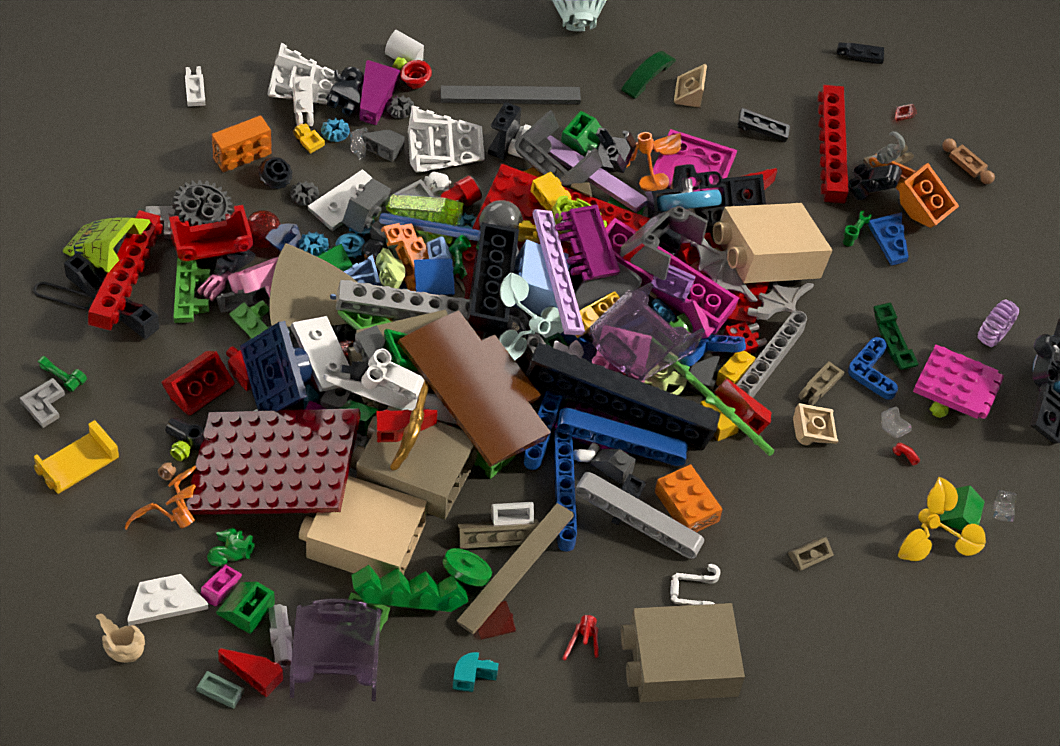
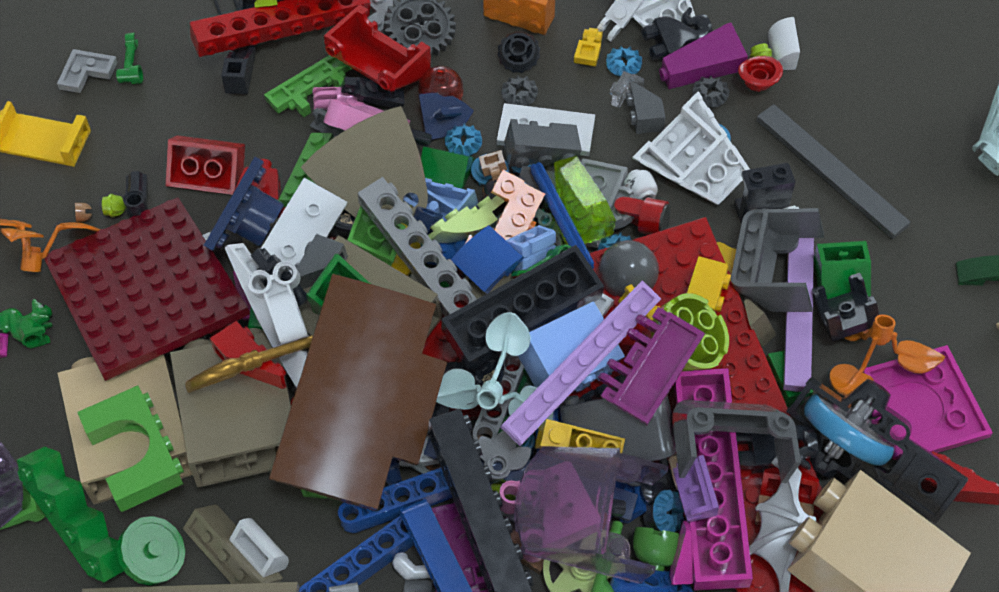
camera: 60 degrees right, 5 degrees up
(356, 236) = (493, 164): none -> medium nougat plate
(382, 507) = (157, 469): none -> bright green arch

